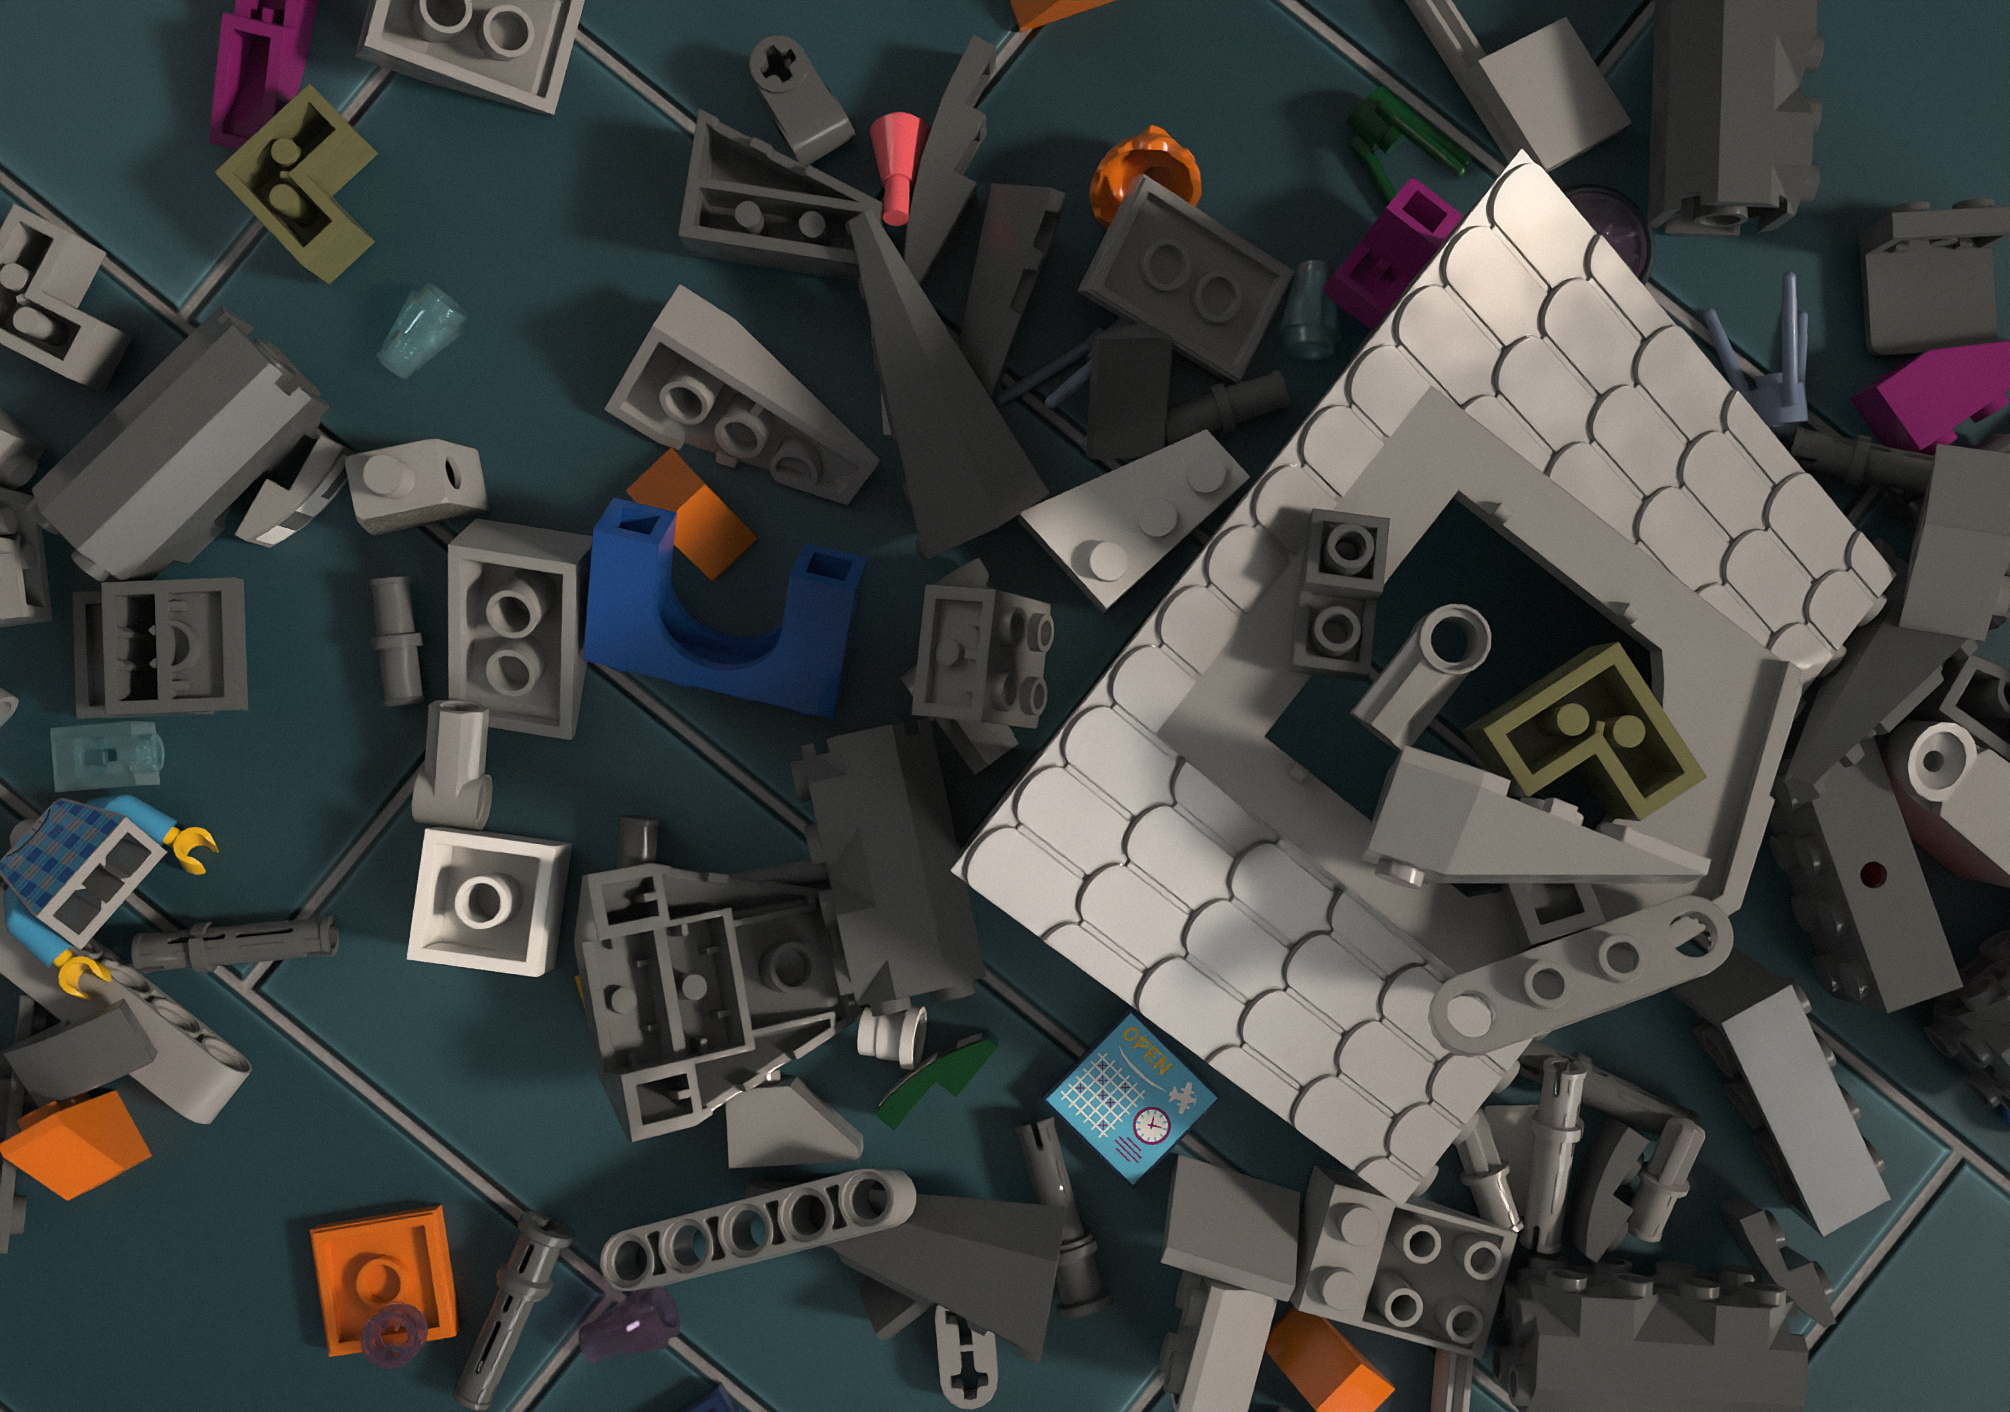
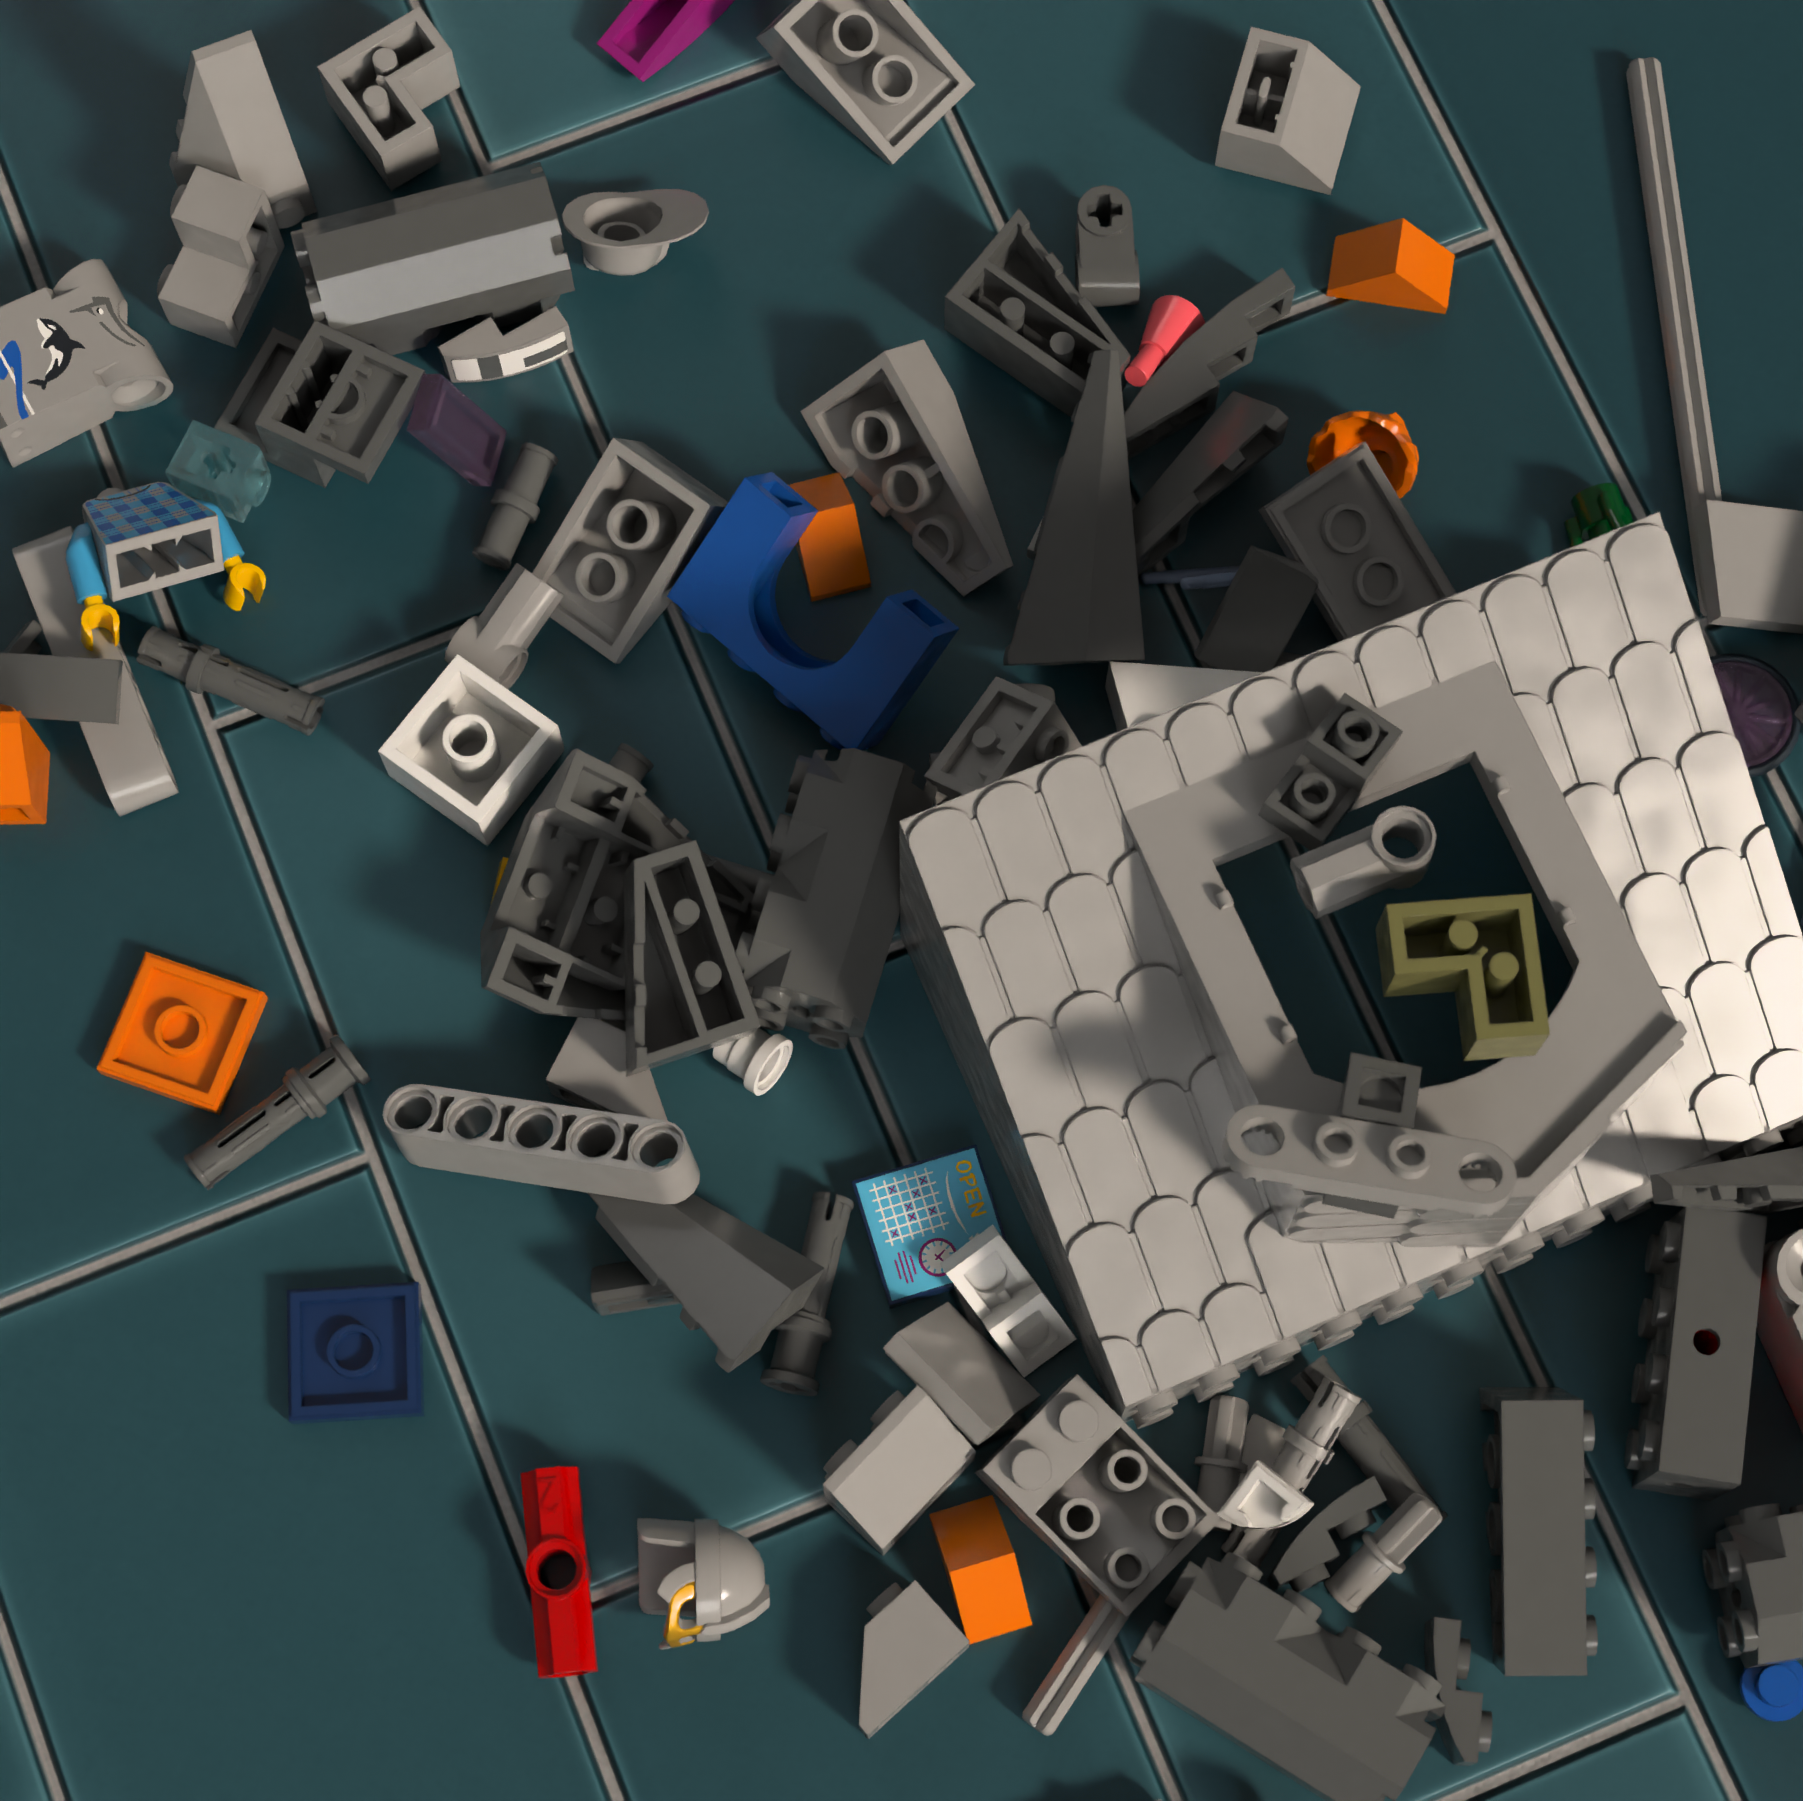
camera: 25 degrees right, 15 degrees down
(291, 177) = (654, 98): olive brick -> none
(298, 606) = (456, 430): none -> clear purple tile
(347, 314) = (632, 229): none -> light grey piece
(385, 1356) = (159, 1057): bush -> none
(410, 485) = (603, 385): light grey torso -> none
(421, 330) = (684, 273): clear light blue cone -> none
(631, 1327) = (376, 1184): clear purple cone -> none
(793, 1019) = (679, 963): none -> dark grey wedge
(950, 1067) = (790, 1105): dark green slope -> none
(950, 1349) = (647, 1359): light grey beam -> none
(1231, 1130) = (1008, 1301): none -> white slope
(1460, 827) = (1336, 991): light grey wedge -> none
(1548, 1199) = (1264, 1501): none -> white tile

